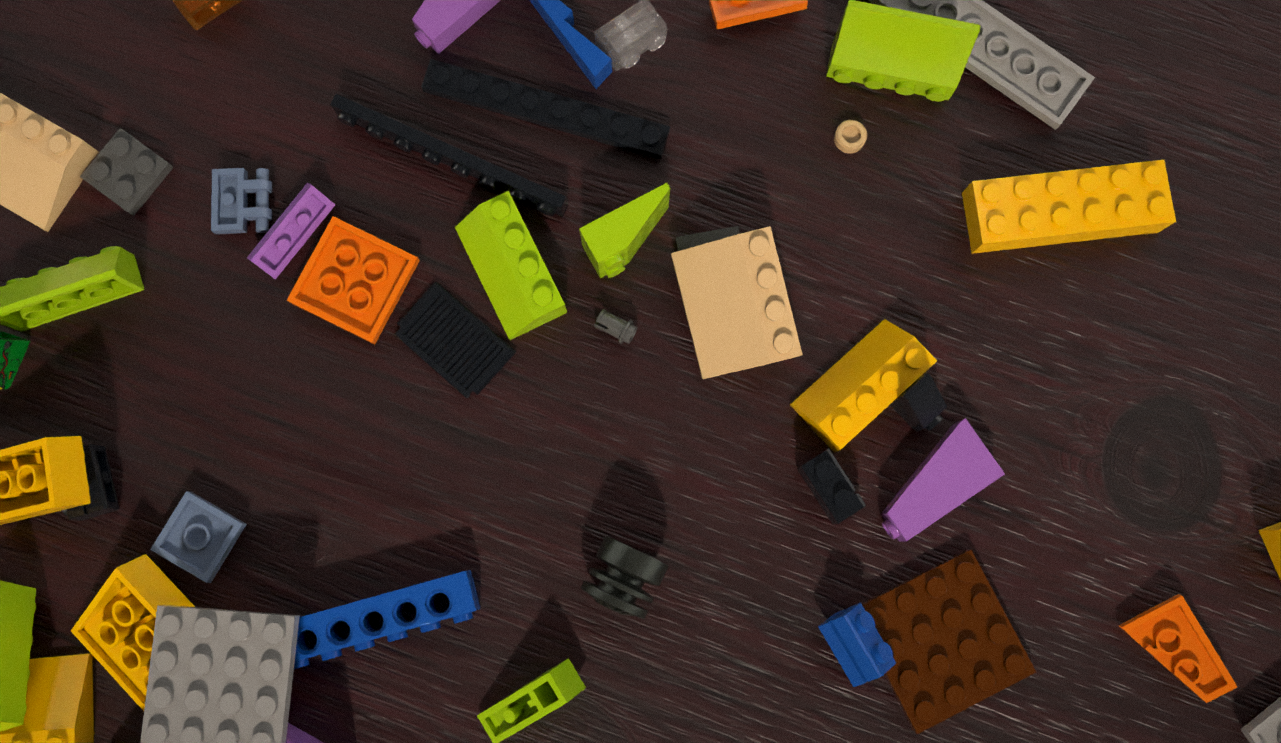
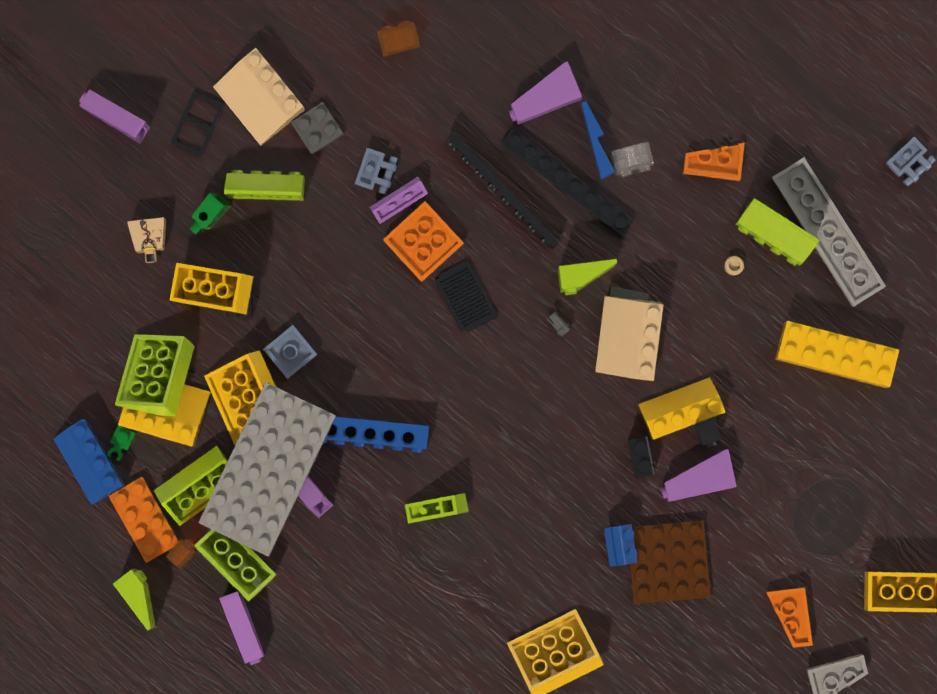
camera: 20 degrees right, 5 degrees up
(510, 266) = (512, 267): lime slope -> none
(624, 578) = (511, 462): pearl dark grey wheel -> none

